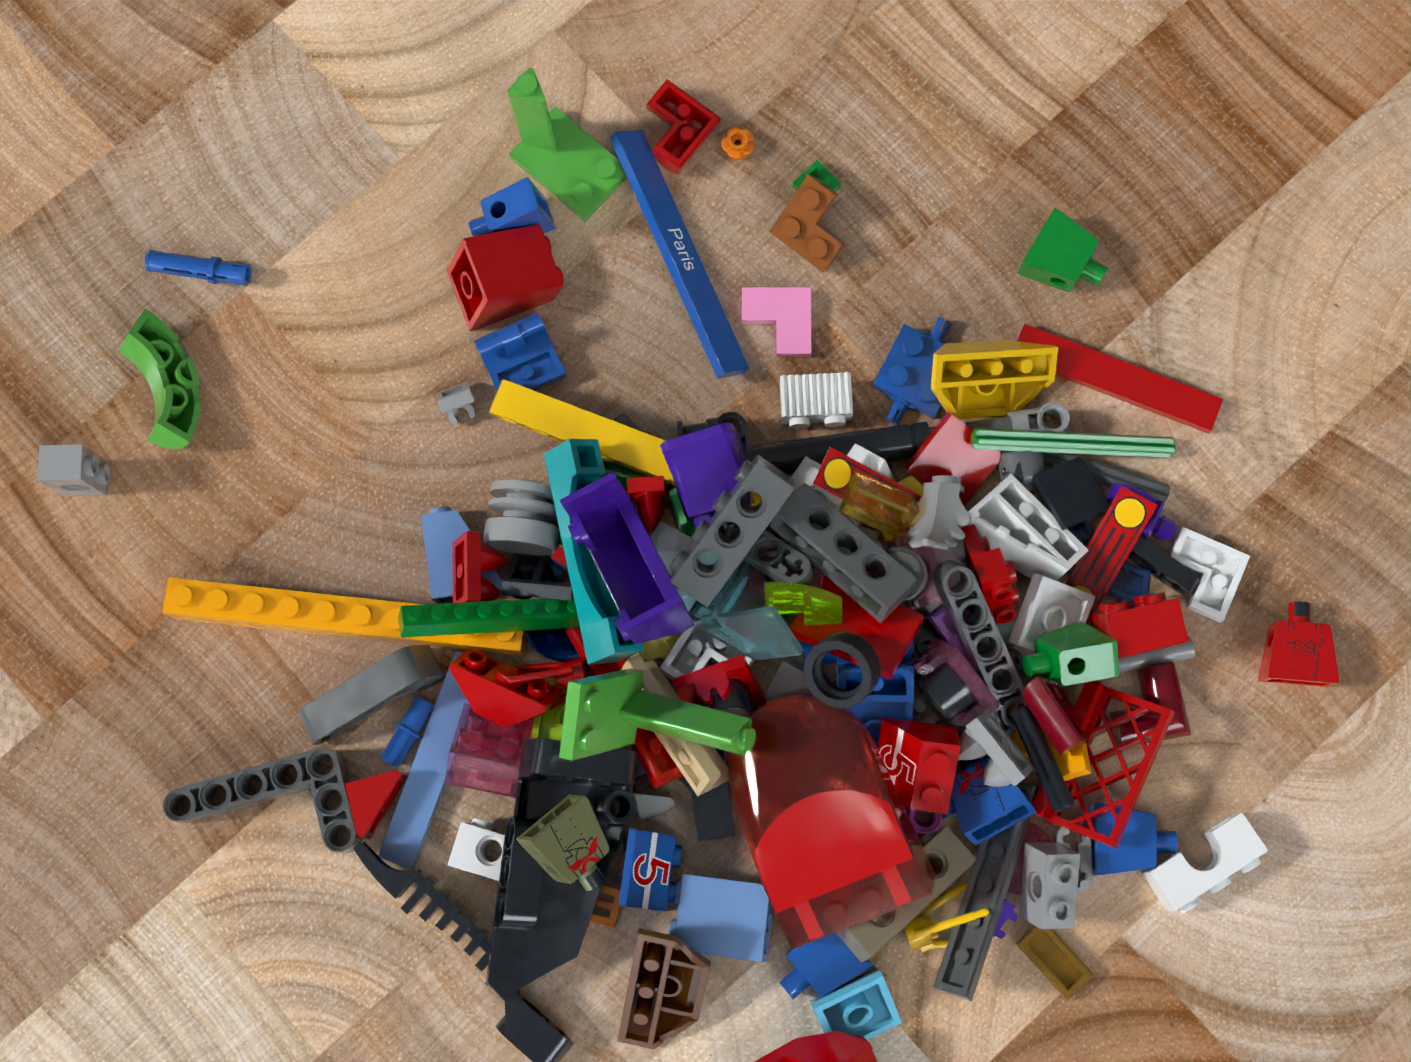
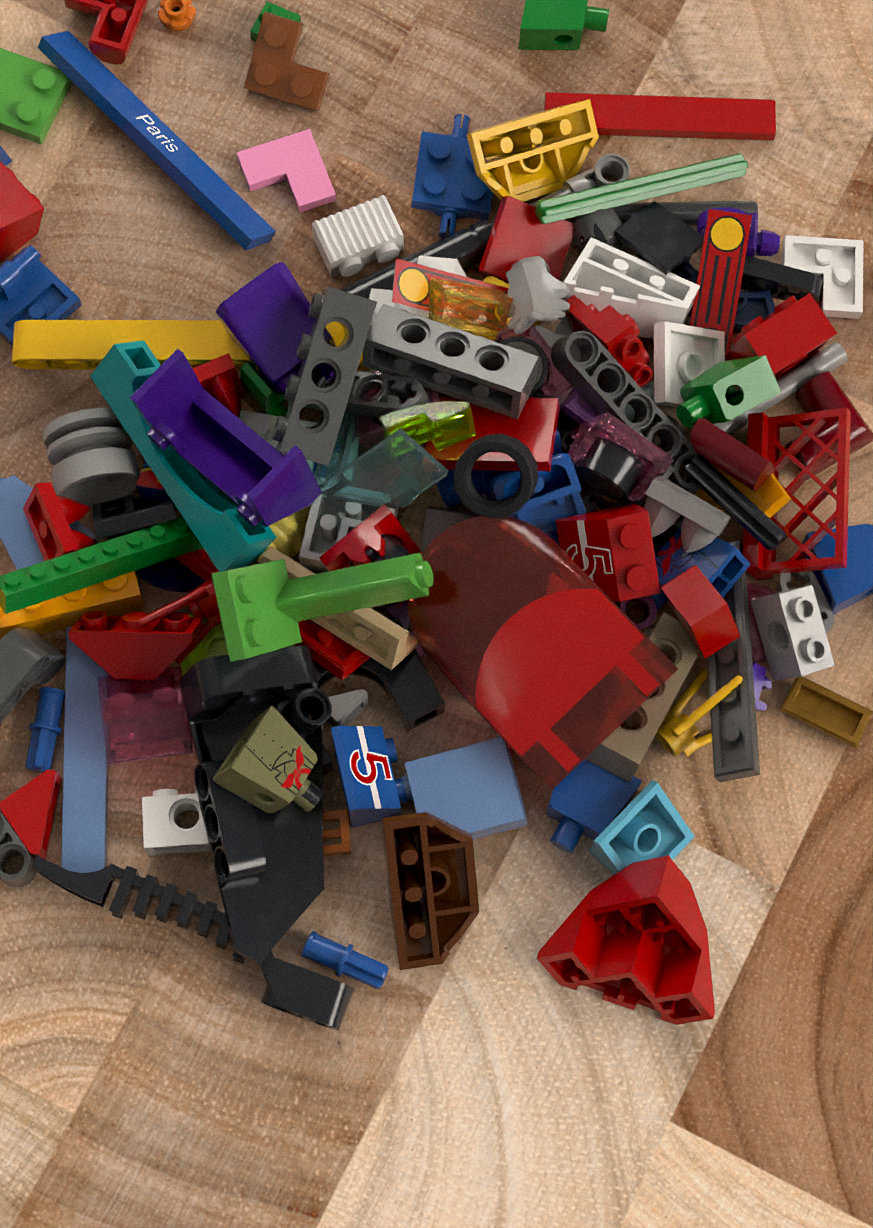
camera: 30 degrees left, 5 degrees down
(576, 1017) = (345, 960): none -> blue axle
(975, 841) = (701, 611): none -> red slope

